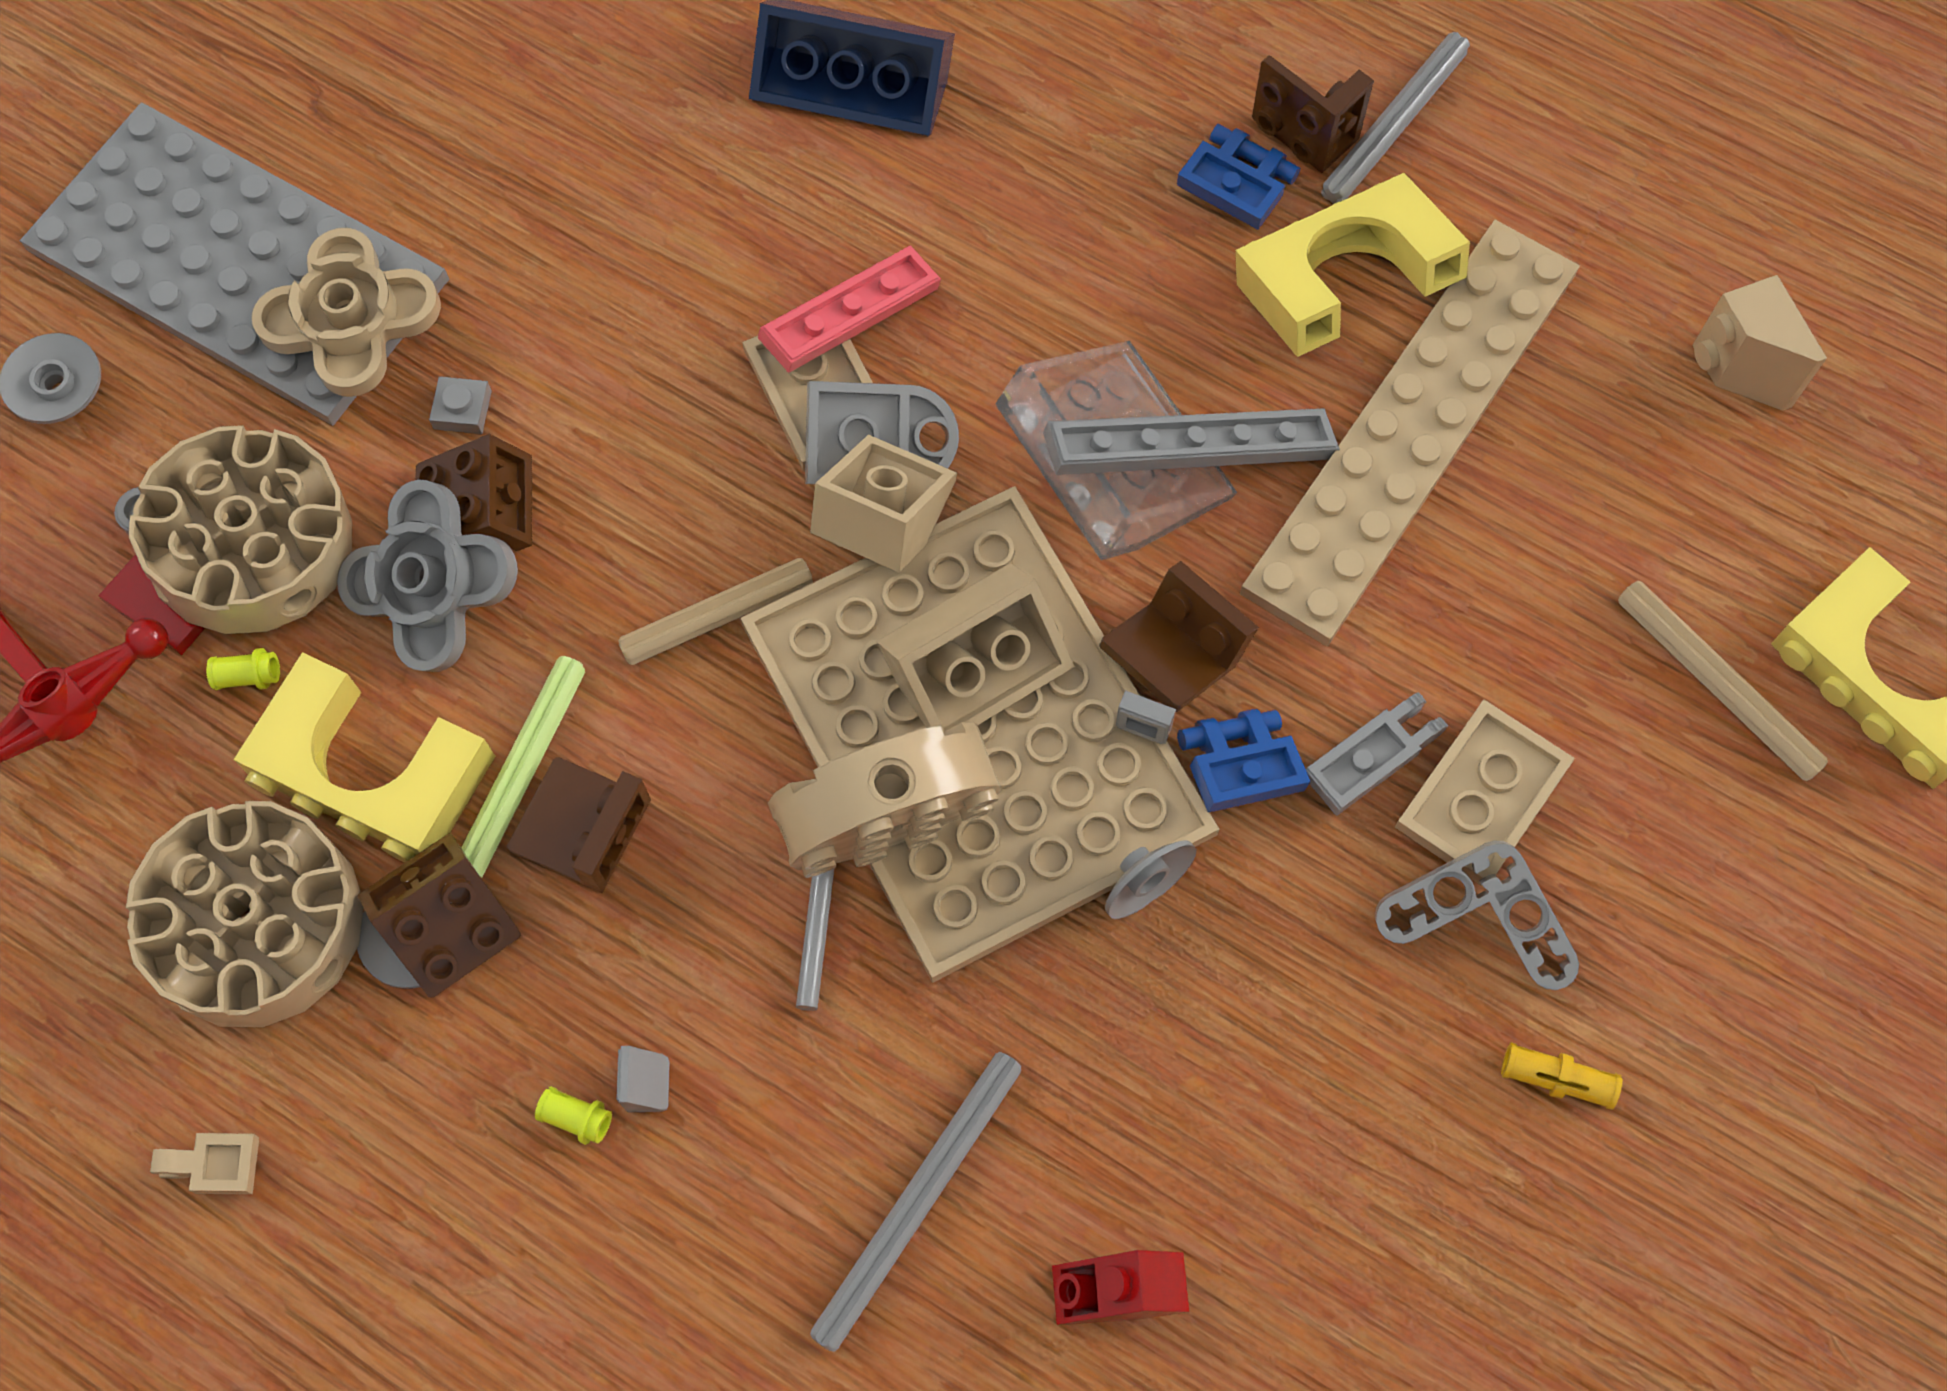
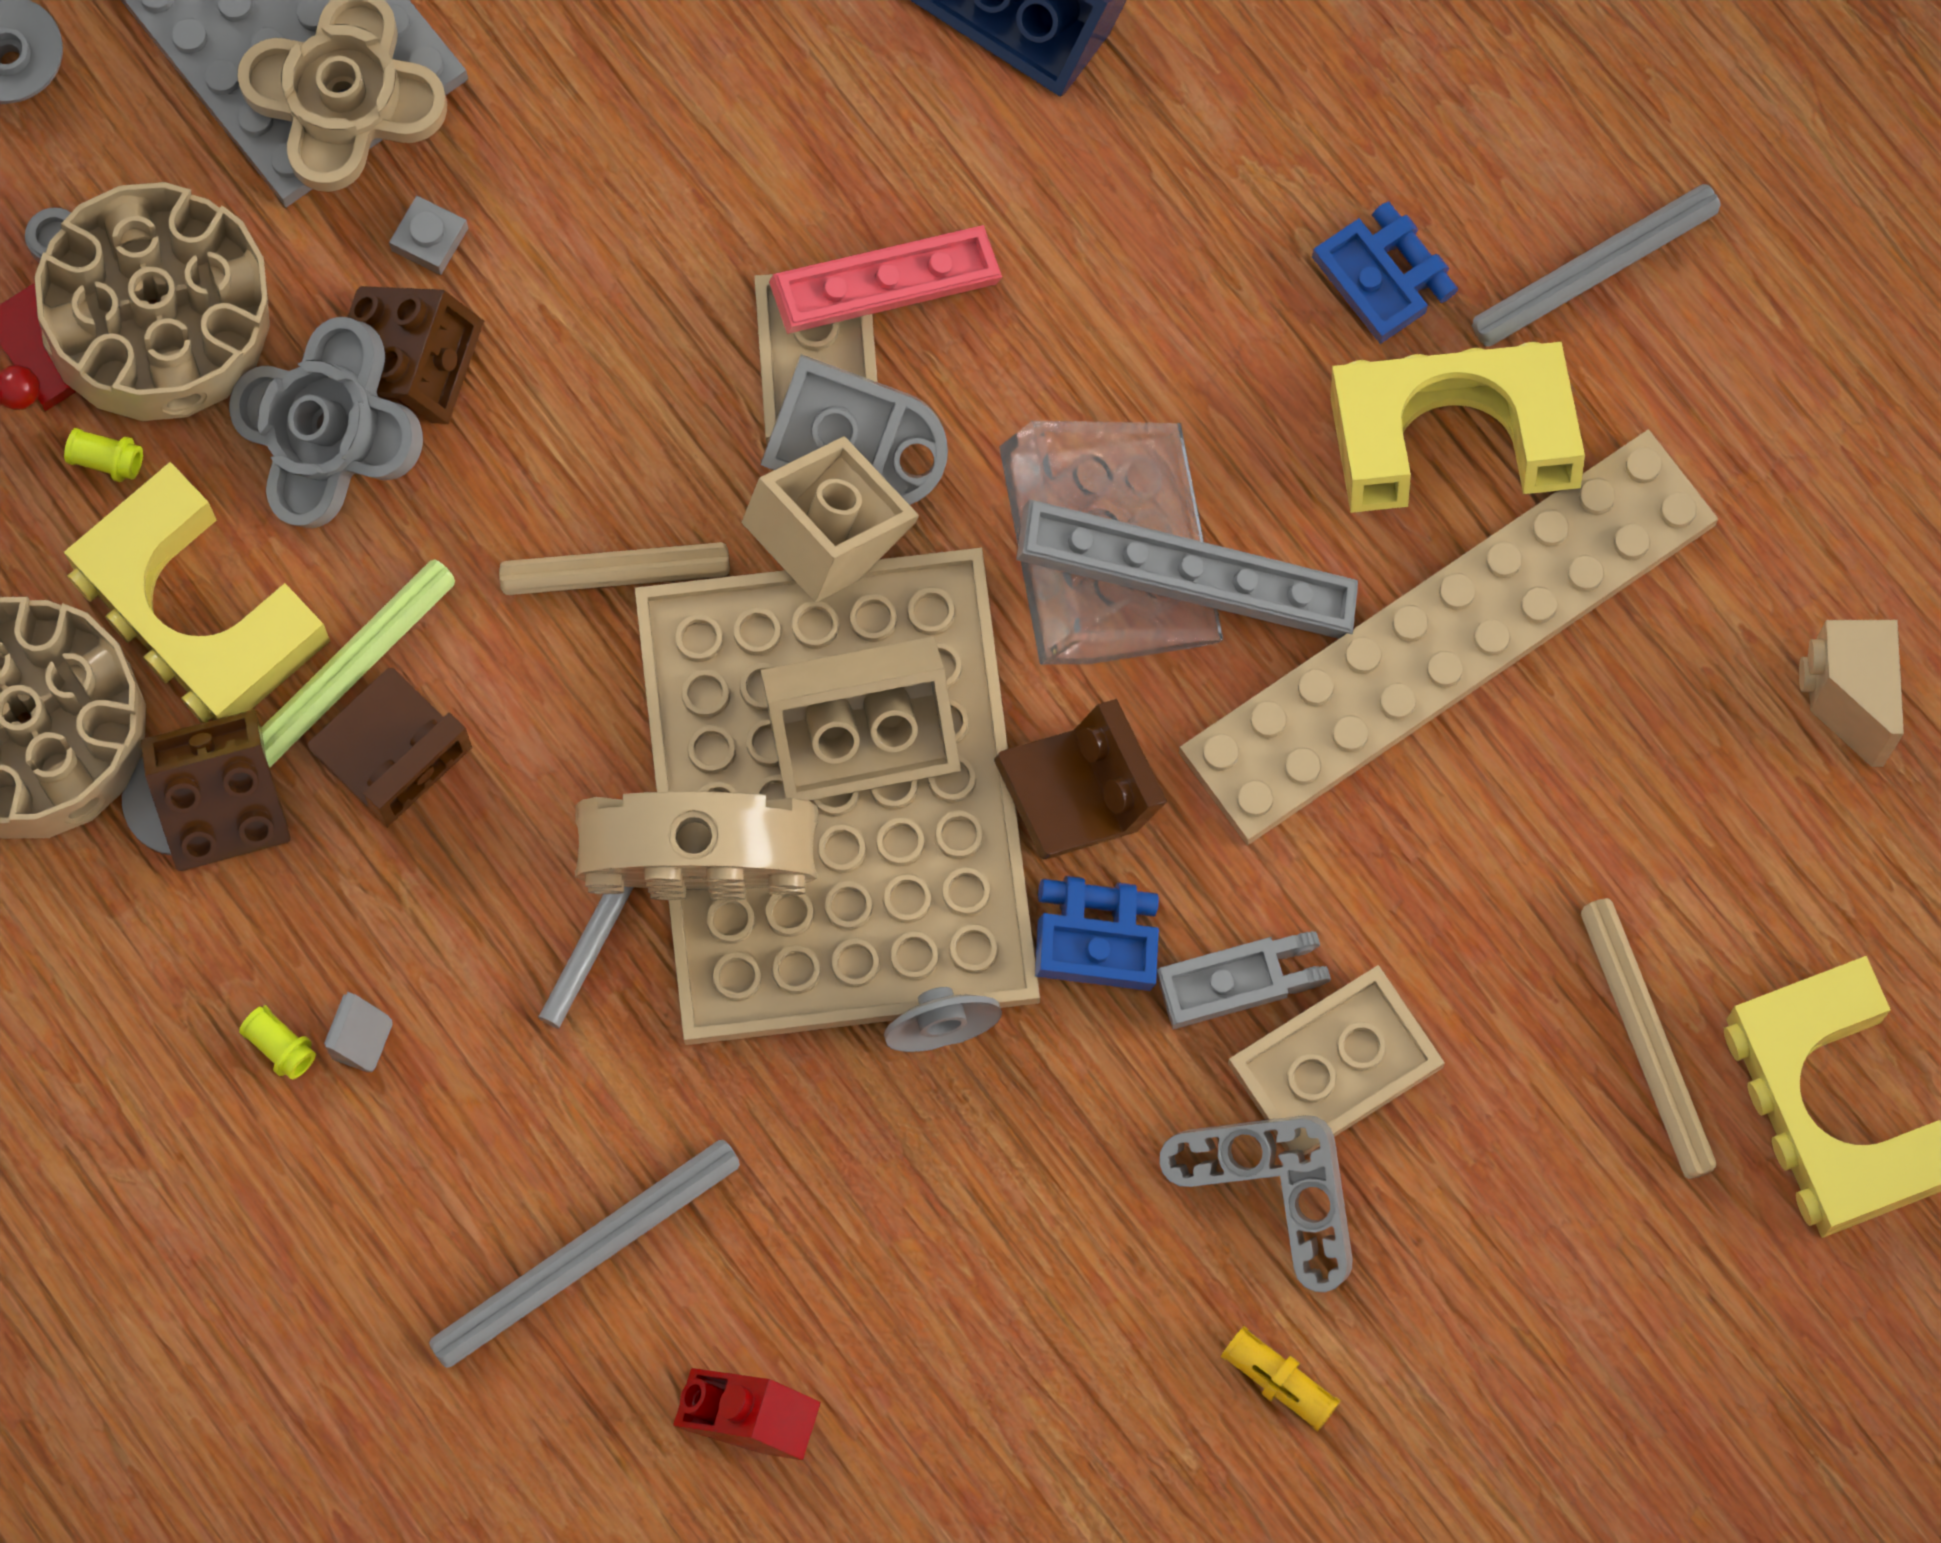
camera: 20 degrees right, 5 degrees up
(1145, 717) = (1007, 854): light grey tile -> none
(1304, 120) = (1490, 257): reddish brown bracket -> none

